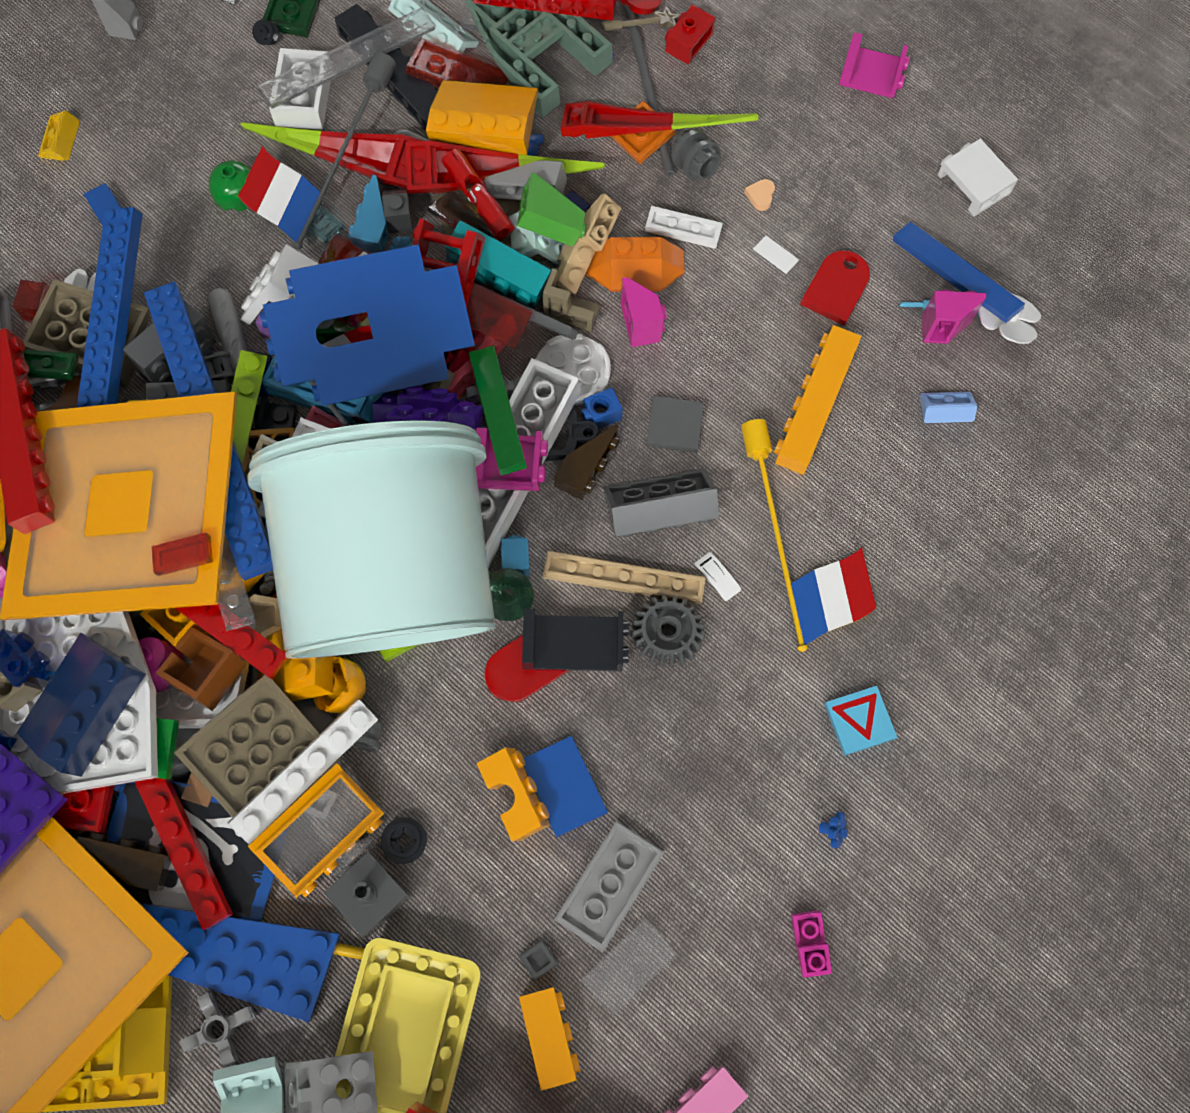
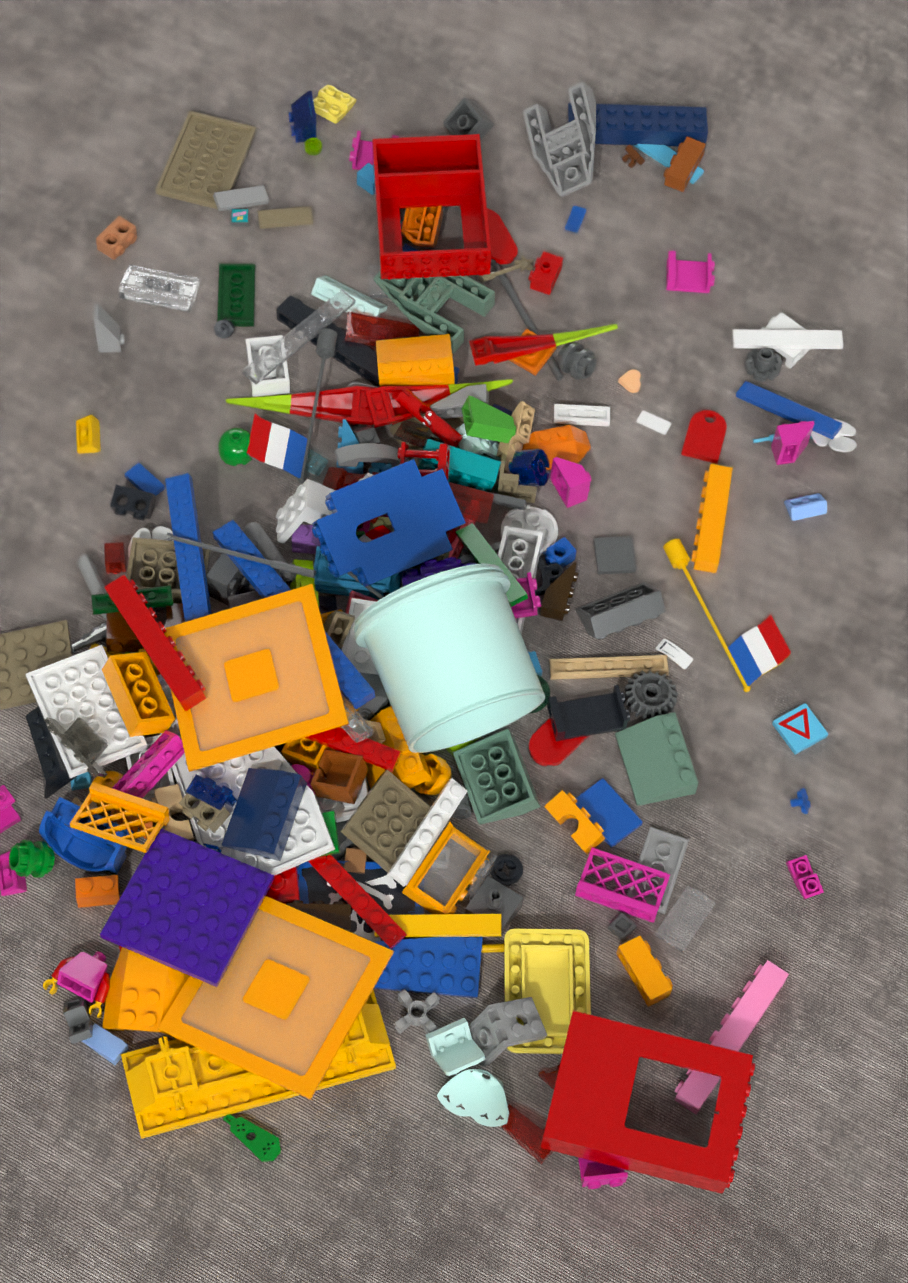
camera: 15 degrees left, 10 degrees down
(77, 234) = (134, 497): none -> black brick
(182, 554) = (313, 696): clear red tile -> none
(225, 365) = (288, 570): none -> dark grey piece
(293, 913) = (450, 925): none -> yellow tile
(385, 224) = (367, 452): none -> light grey slope
(427, 707) = (496, 778): none -> sand green slope
(540, 921) = (618, 901): none -> dark pink fence
(592, 284) = (530, 467): none -> clear blue brick
(651, 726) = (657, 760): none -> sand green slope
(939, 204) = (763, 364): none -> dark grey plant
(979, 176) = (787, 339): none -> white tile

